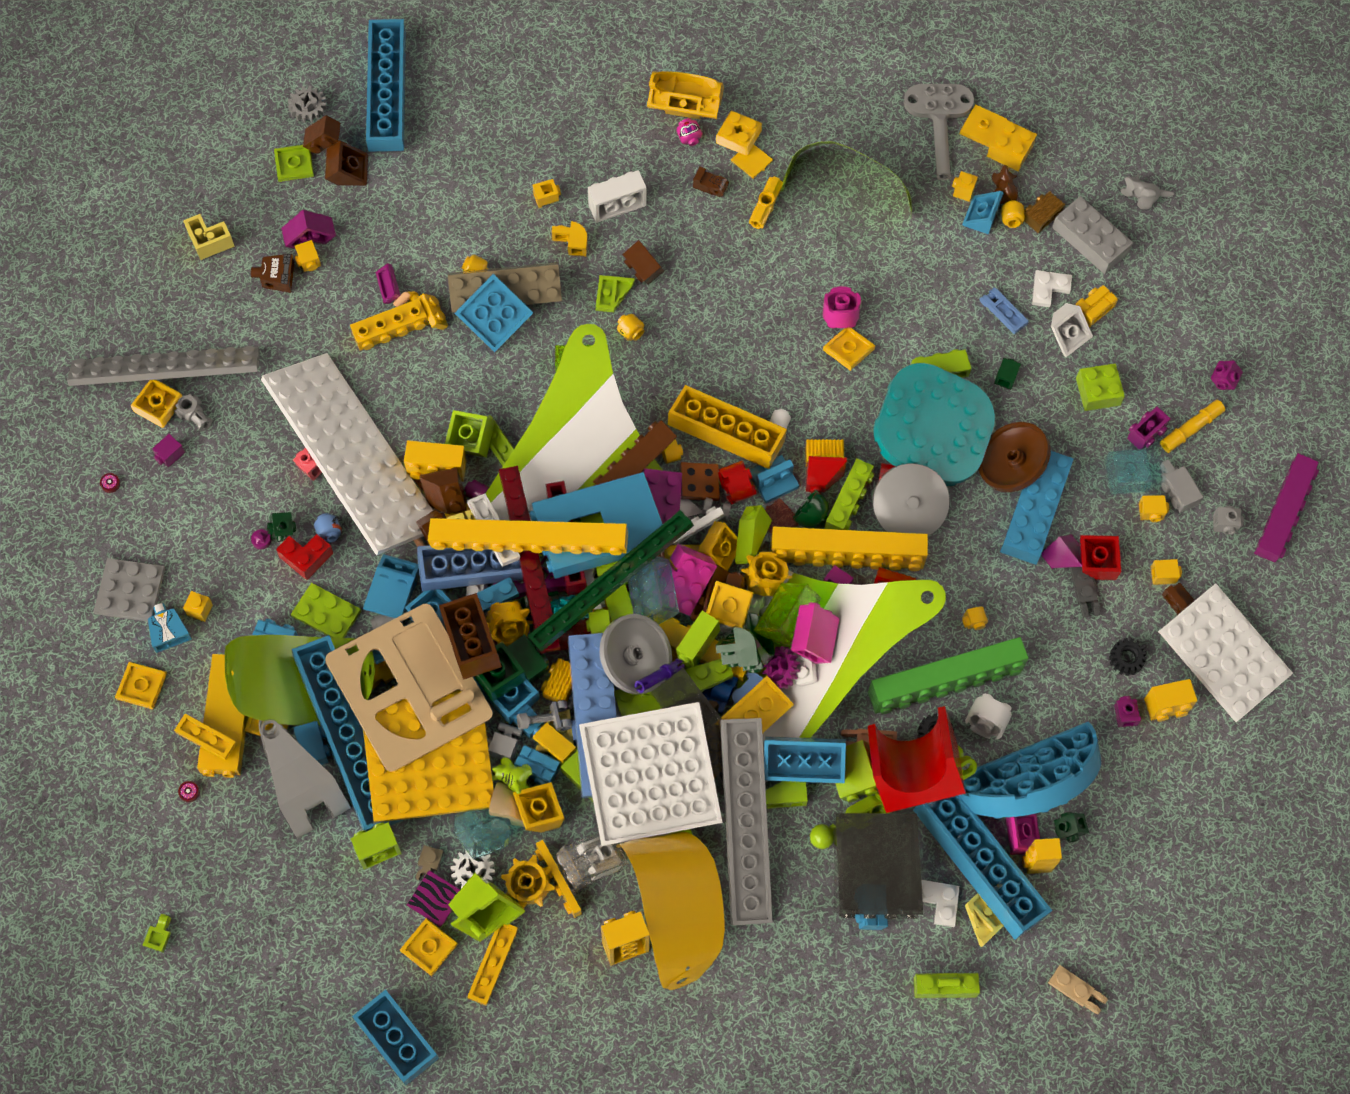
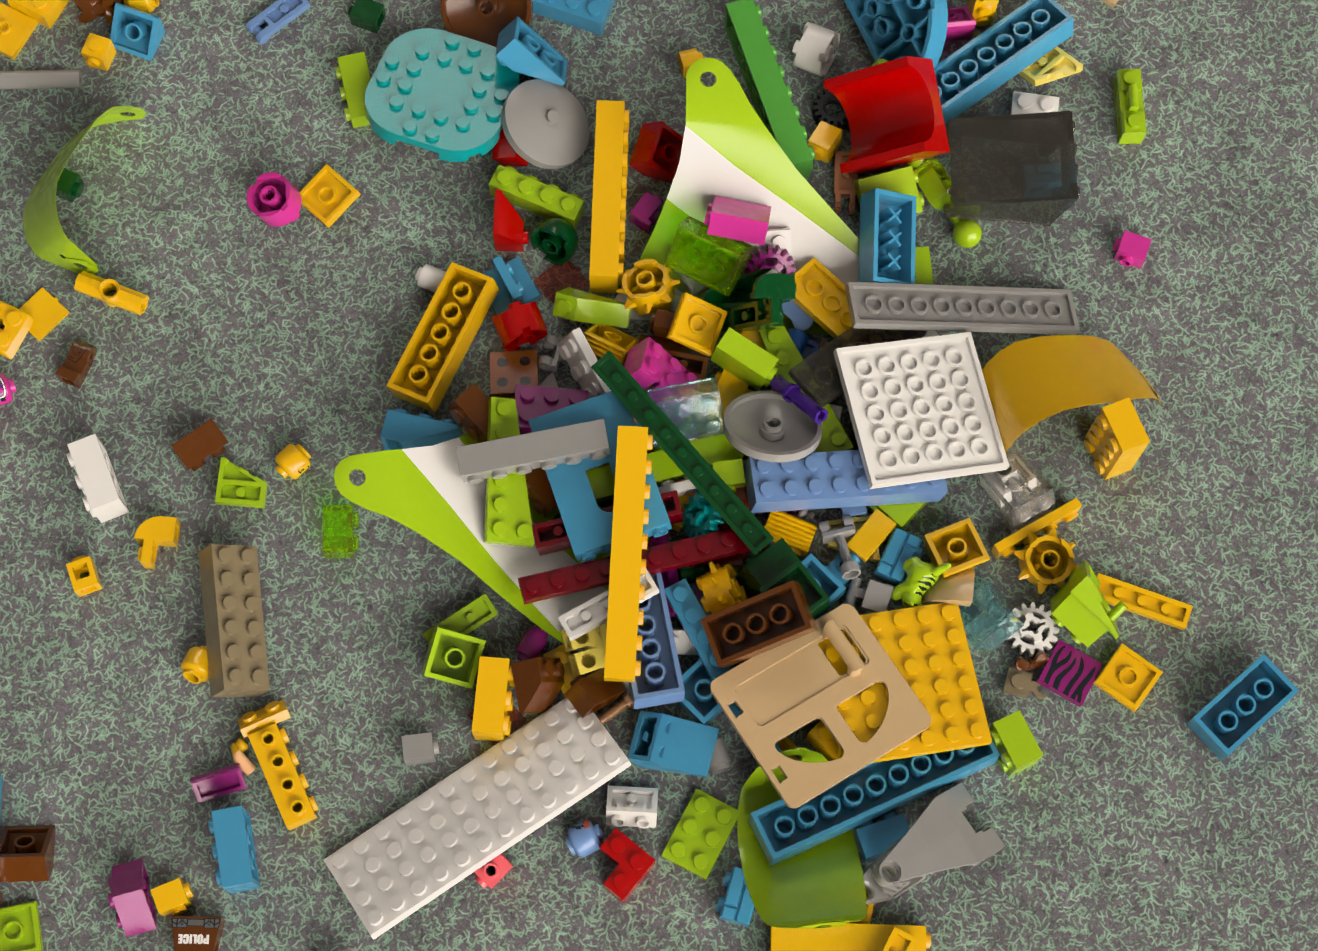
camera: 90 degrees left, 5 degrees up
(260, 539) = (599, 928): magenta tile -> none
(284, 520) = (585, 899): dark green brick -> none
(335, 292) = (234, 849): none -> dark azure brick
(350, 561) = (631, 806): none -> white bracket
(403, 414) = (419, 748): none -> light grey brick
(446, 872) = (1039, 660): none -> reddish brown piece
(493, 312) = (275, 631): dark azure plate -> none
(587, 461) = (506, 498): none -> lime wing
(614, 470) = (533, 451): none -> light grey brick
(648, 402) = (411, 431): none -> dark azure slope
(809, 977) = (1131, 249): none -> dark pink brick
(824, 448) = (476, 225): yellow brick -> none
(855, 168) = (69, 185): none -> dark green brick
(903, 721) = (825, 141): none -> yellow brick
(971, 490) = (530, 54): none -> dark azure slope

